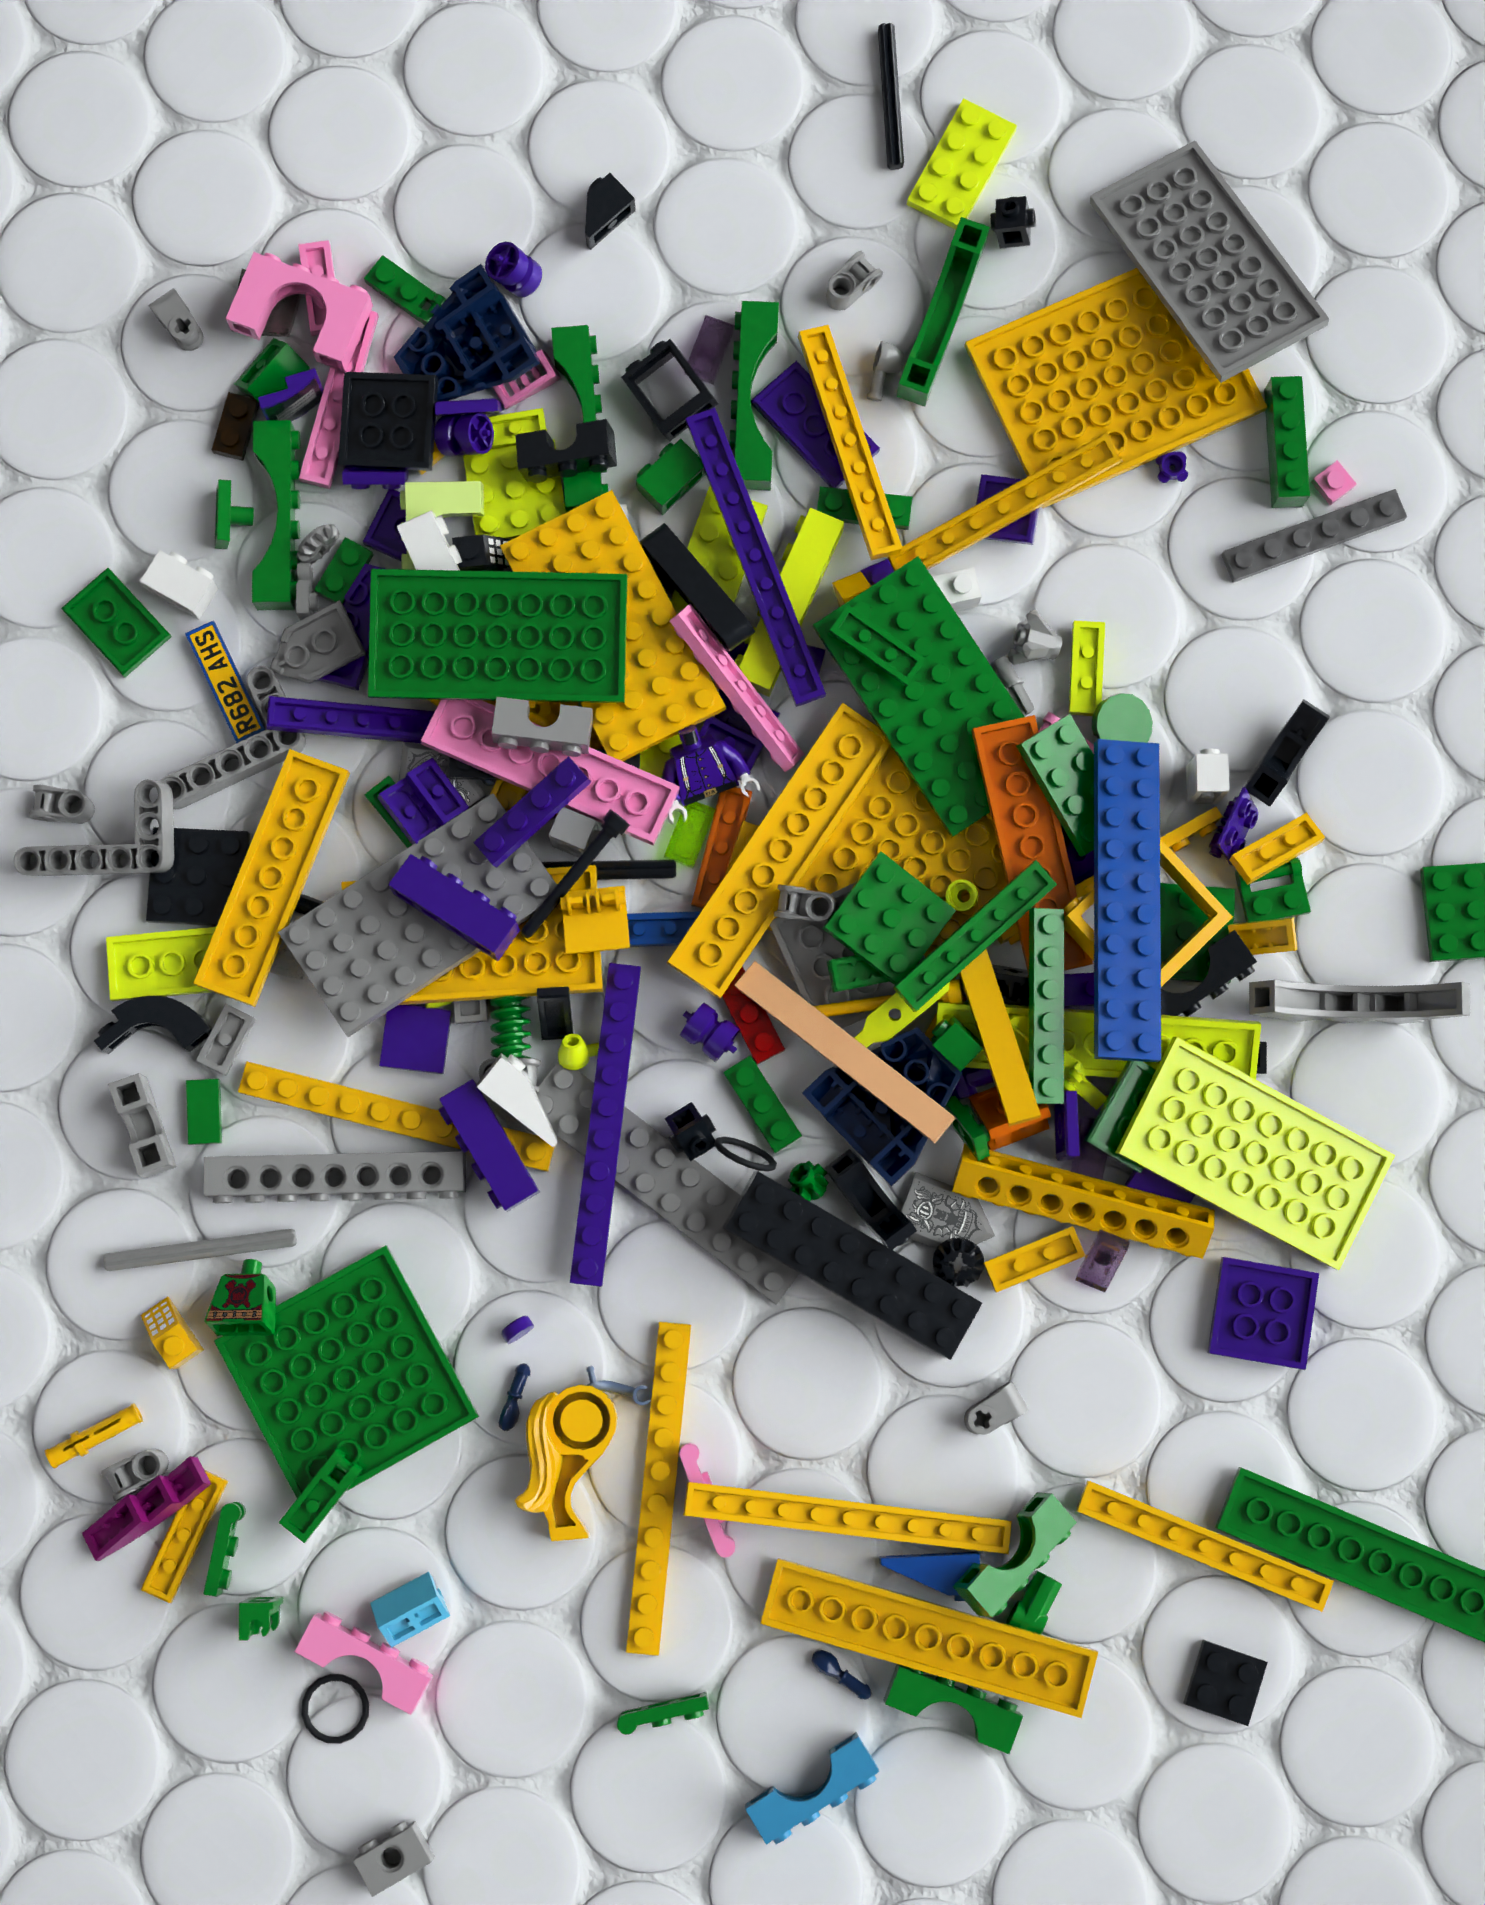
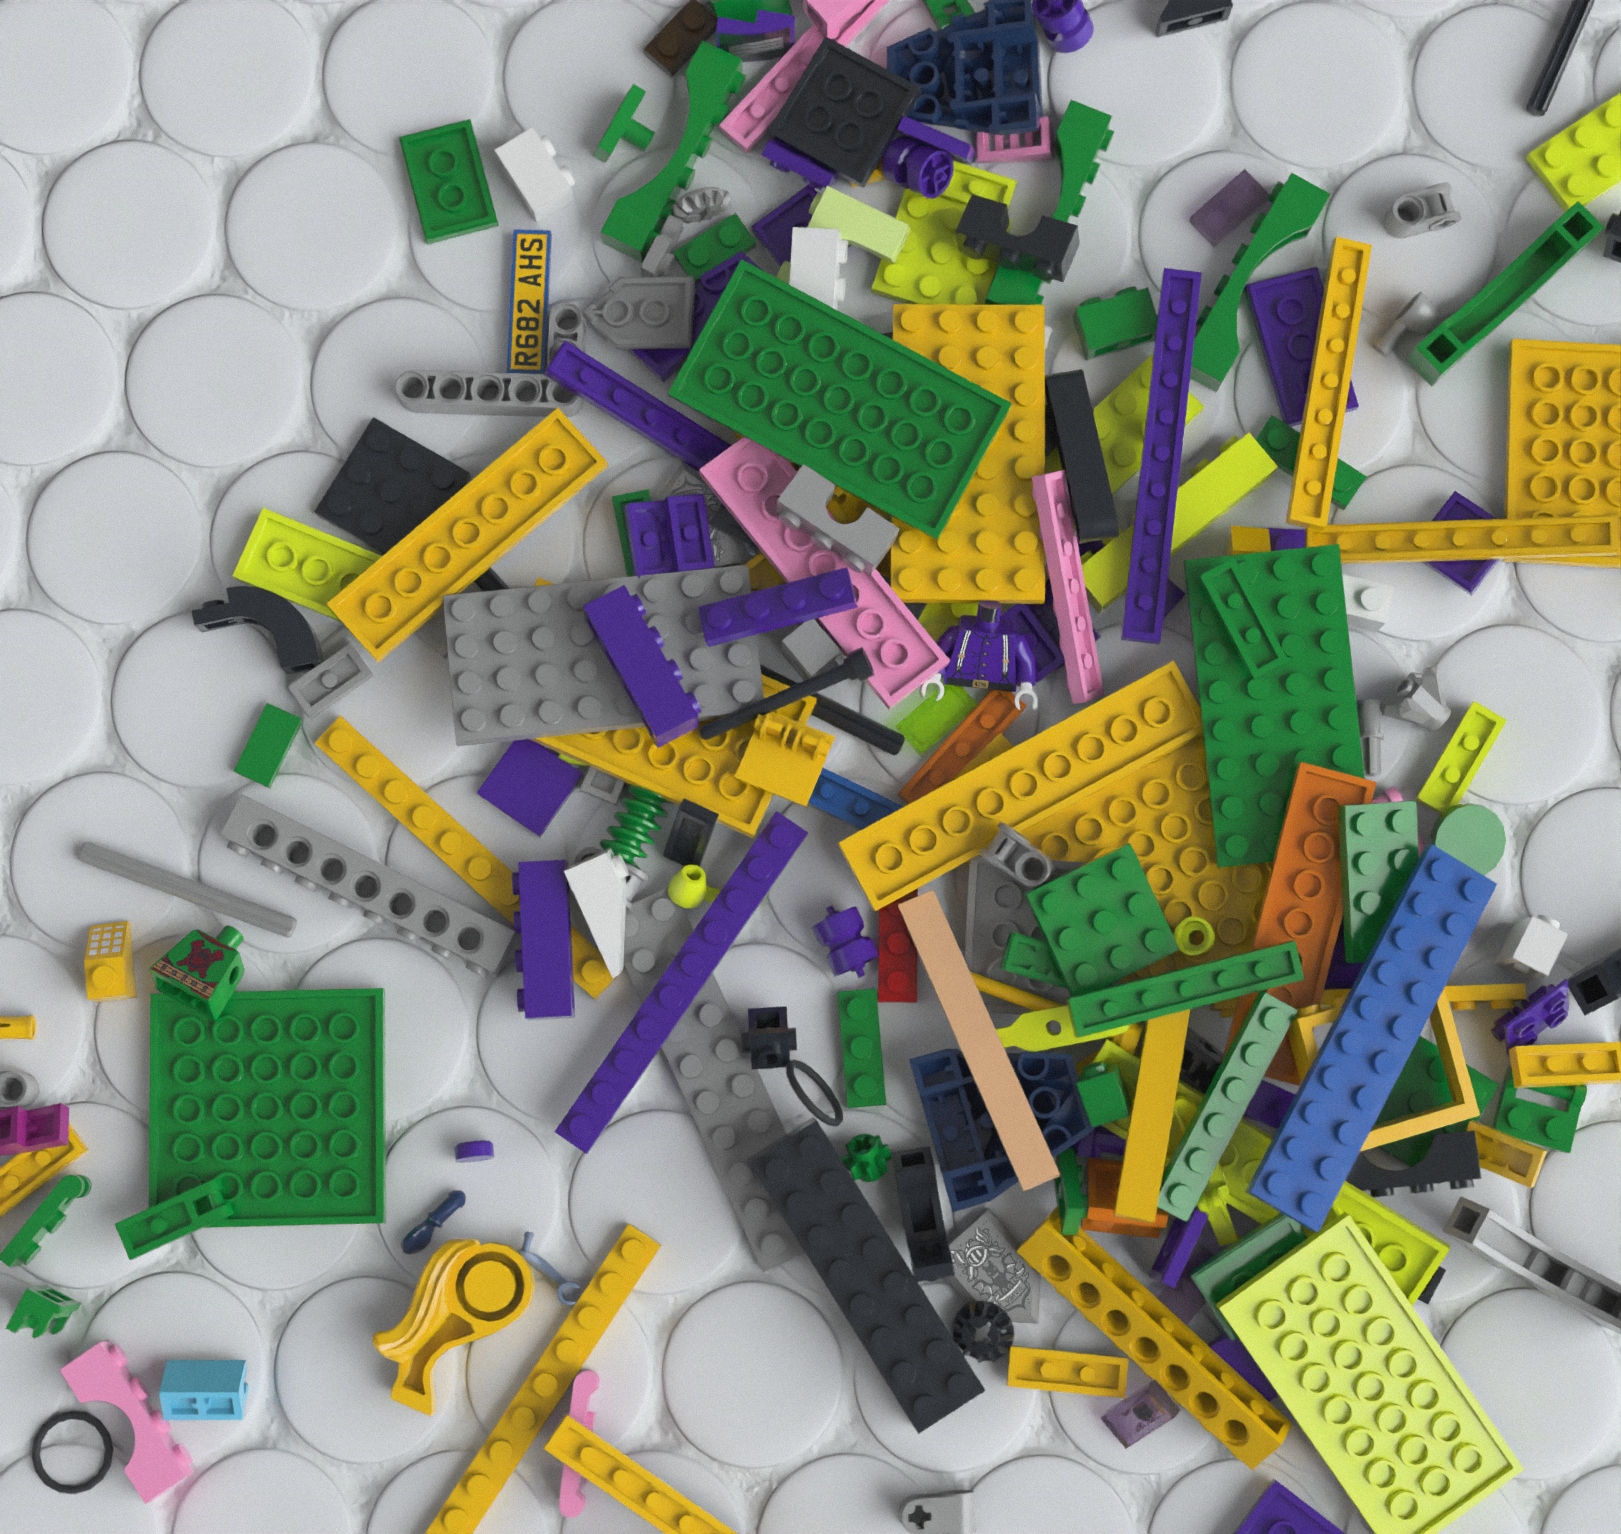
camera: 30 degrees right, 0 degrees up
(55, 805) = (284, 341): light grey piece -> none
(109, 855) = (310, 423): light grey beam -> none
(148, 1138) = (193, 750): light grey arch -> none
(481, 553) = (869, 302): black slope -> none
(640, 370) = (1141, 193): black window -> none

